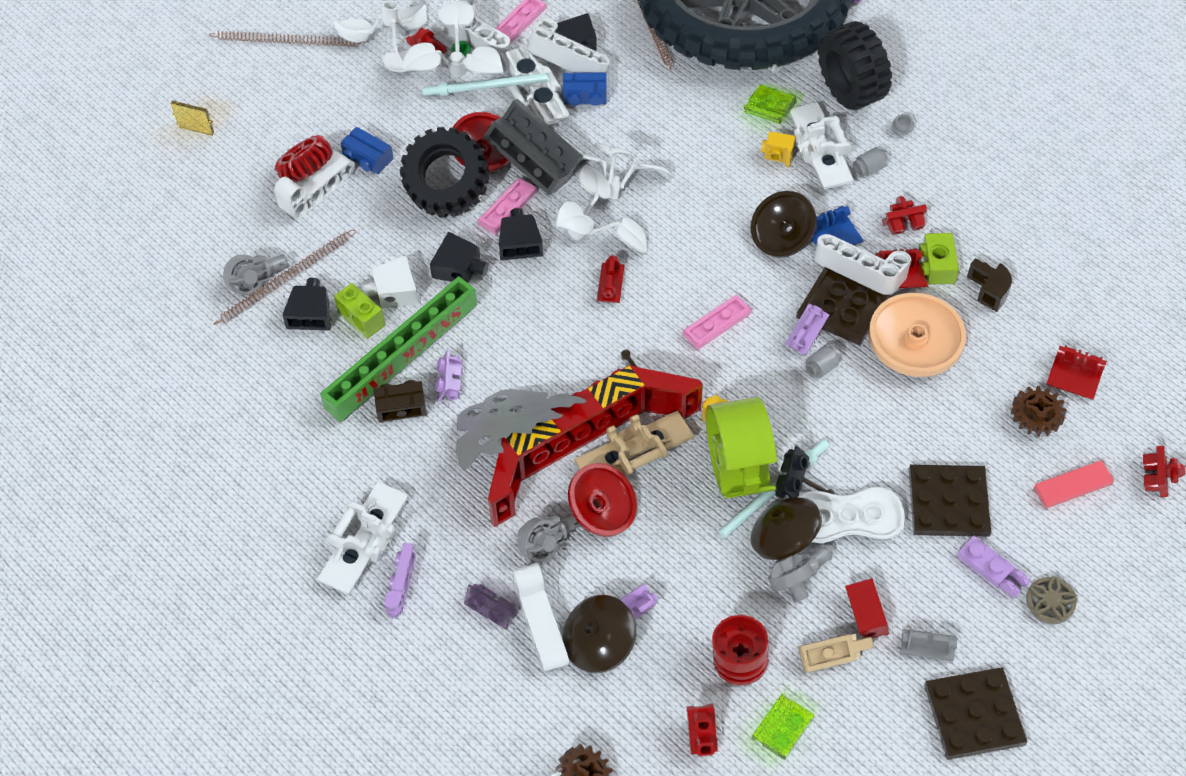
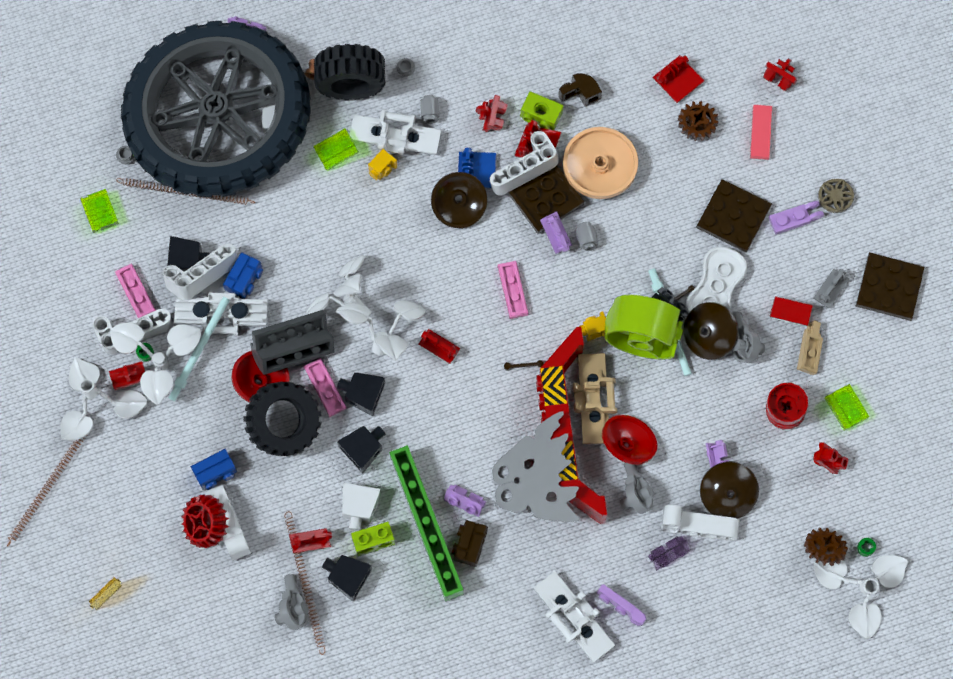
camera: 65 degrees left, 15 degrees up
(330, 258) = (310, 540): none -> red hinge

